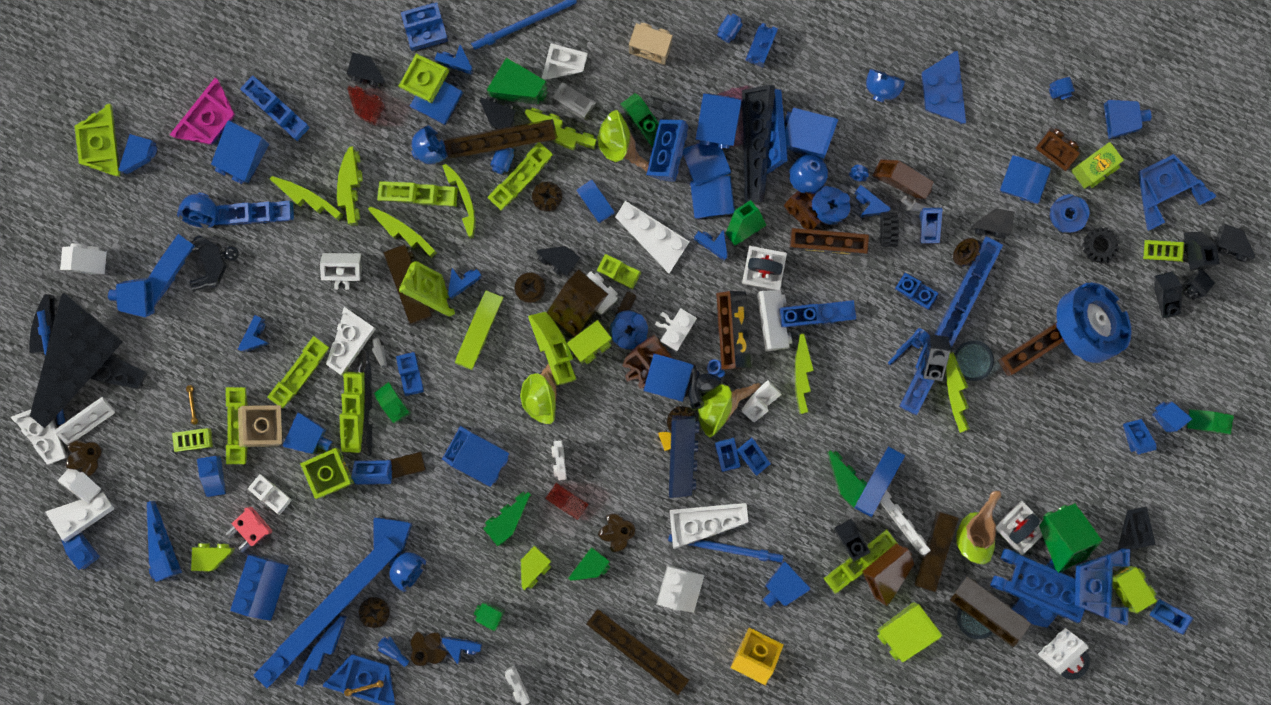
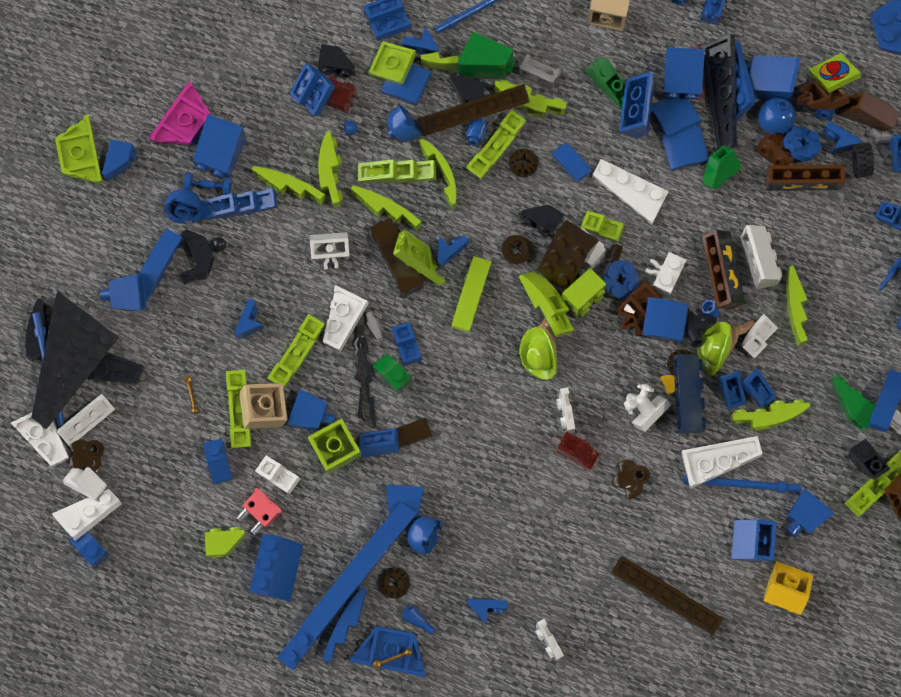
camera: 10 degrees left, 10 degrees down
(83, 260) = (74, 262): white brick -> none
(161, 553) = (173, 545): blue wedge -> none
(206, 185) = (188, 183): none -> blue wheel
(207, 435) = (206, 418): lime slope -> none
(275, 108) = (249, 104): blue slope -> none
(338, 99) = (312, 89): none -> blue slope
(352, 412) = (353, 385): lime slope -> none
(375, 142) = (350, 128): none -> blue hinge
(429, 647) = (454, 612): dark brown plate -> none
(466, 80) = (434, 62): none -> lime slope
(475, 456) = (481, 416): blue slope -> none
(489, 615) = (512, 572): green slope -> none
(505, 524) = (517, 481): green slope -> none
(532, 565) = (550, 519): lime slope -> none
(563, 62) = (526, 35): white wing -> none
(590, 566) = (609, 513): green slope -> none
(617, 142) = (587, 103): lime hat -> none
(641, 466) = (649, 410): none -> white piece
(680, 589) = (702, 525): white slope -> none
(717, 247) = (696, 194): blue slope -> none
(728, 607) = (754, 541): none -> blue slope
(764, 268) = (744, 208): white plate -> none
(770, 482) = (778, 414): none -> lime slope
(817, 314) = (803, 246): blue slope -> none
(857, 158) = (817, 97): none -> reddish brown plate
(874, 133) = (834, 73): none -> tile
(883, 85) = (837, 28): blue cylinder -> none

